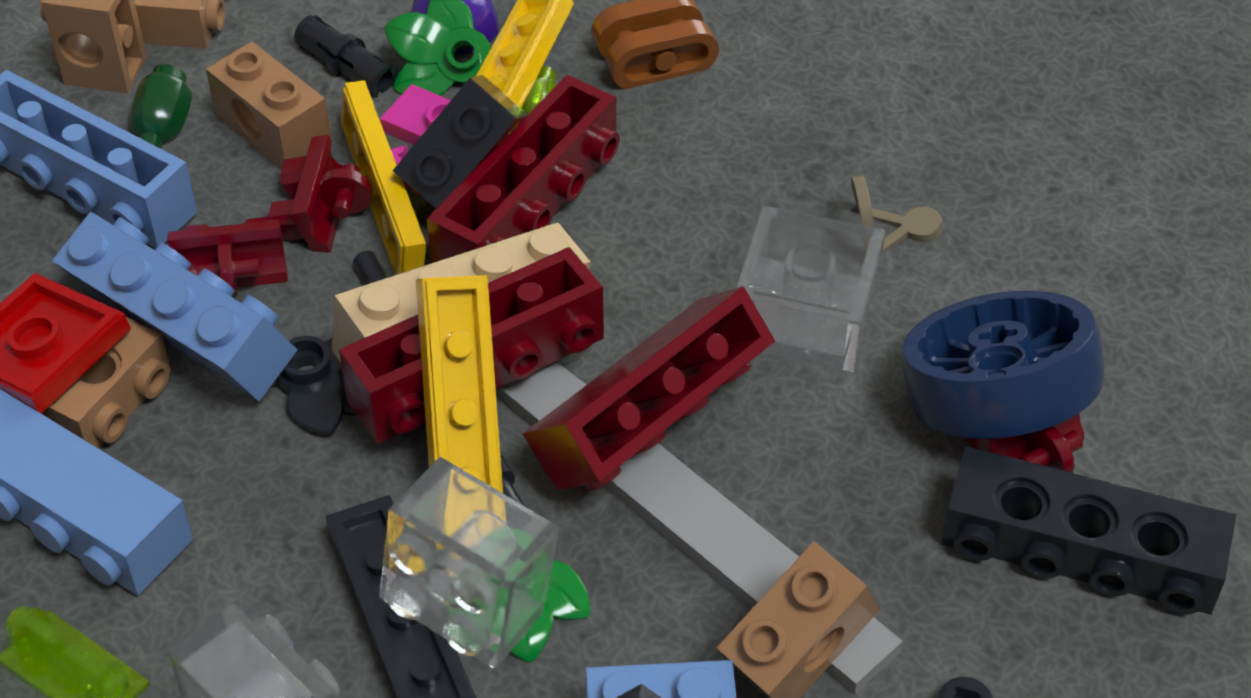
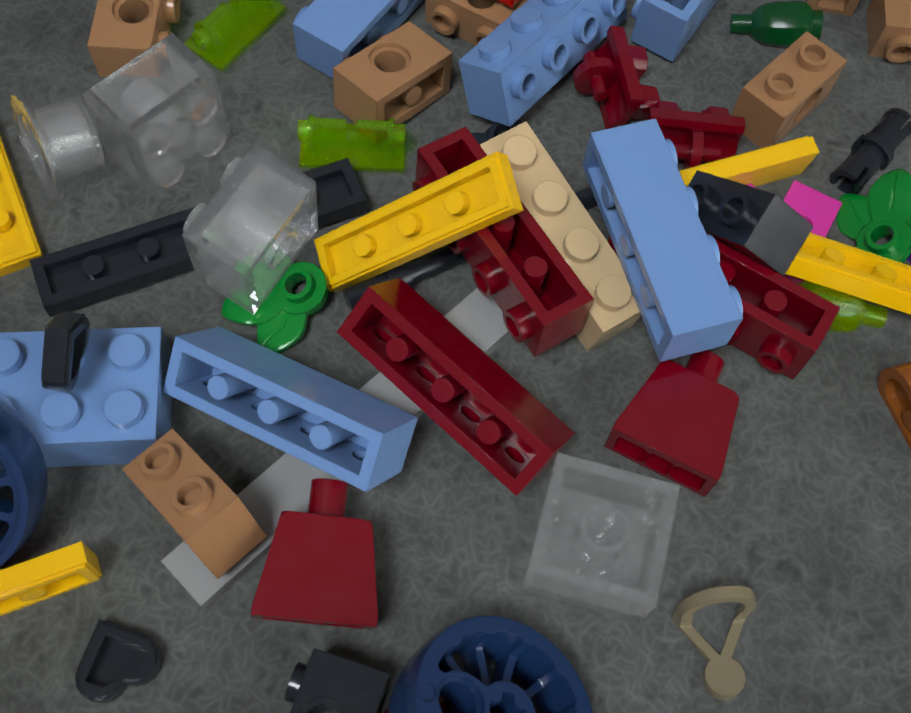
camera: 85 degrees right, 15 degrees up
(212, 467) = (393, 76): none -> medium nougat brick
(293, 522) = (367, 145): none -> clear neon green hinge
(498, 188) = (661, 240): none -> medium blue brick
(673, 227) = (680, 423): none -> dark red torso
(681, 538) = (290, 406): none -> medium blue brick
(861, 514) = (320, 565): none -> dark red torso

